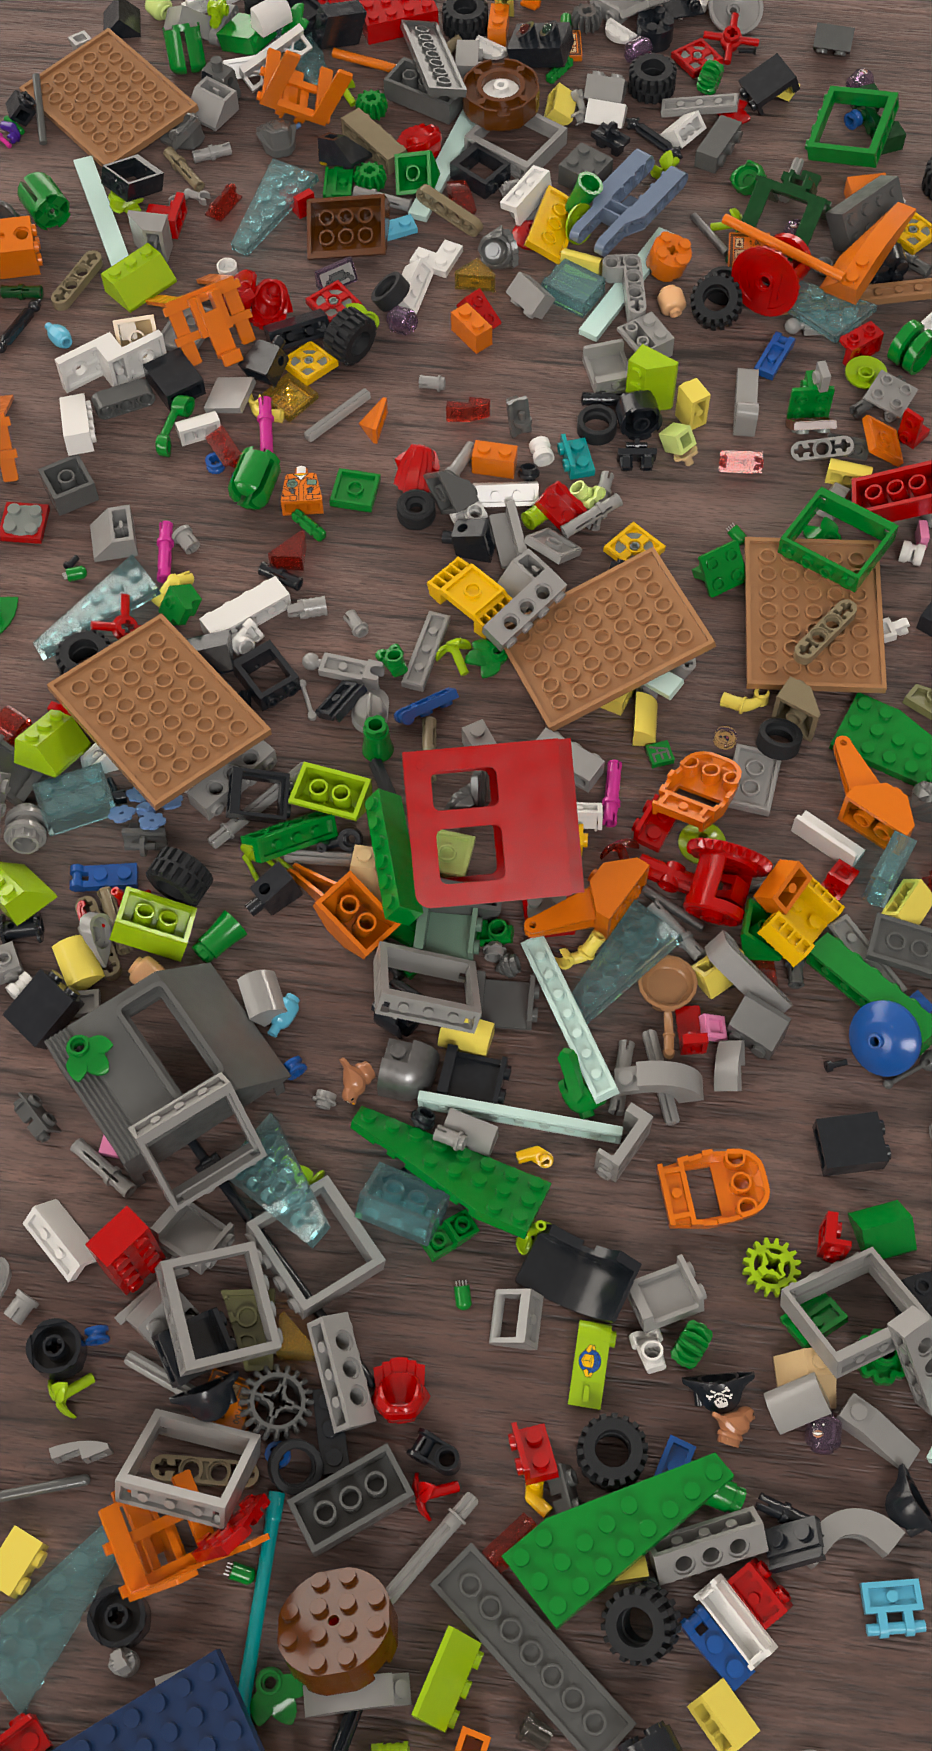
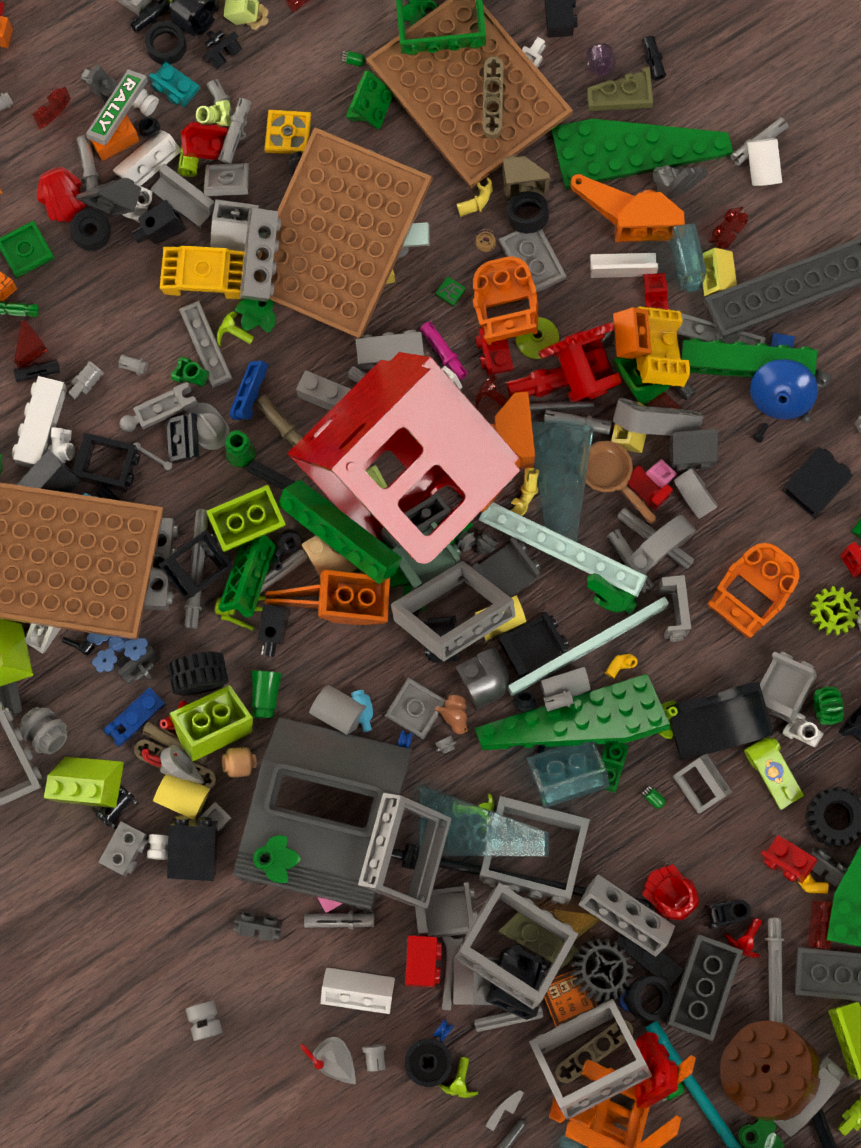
camera: 40 degrees left, 15 degrees up
(74, 799) = (57, 677): clear light blue brick -> none
(209, 1400) = (557, 1005): black hat -> none
(325, 1048) = (415, 708): none -> light grey tile
(514, 435) = (116, 107): none -> tile
(644, 719) = (418, 274): light yellow brick -> none

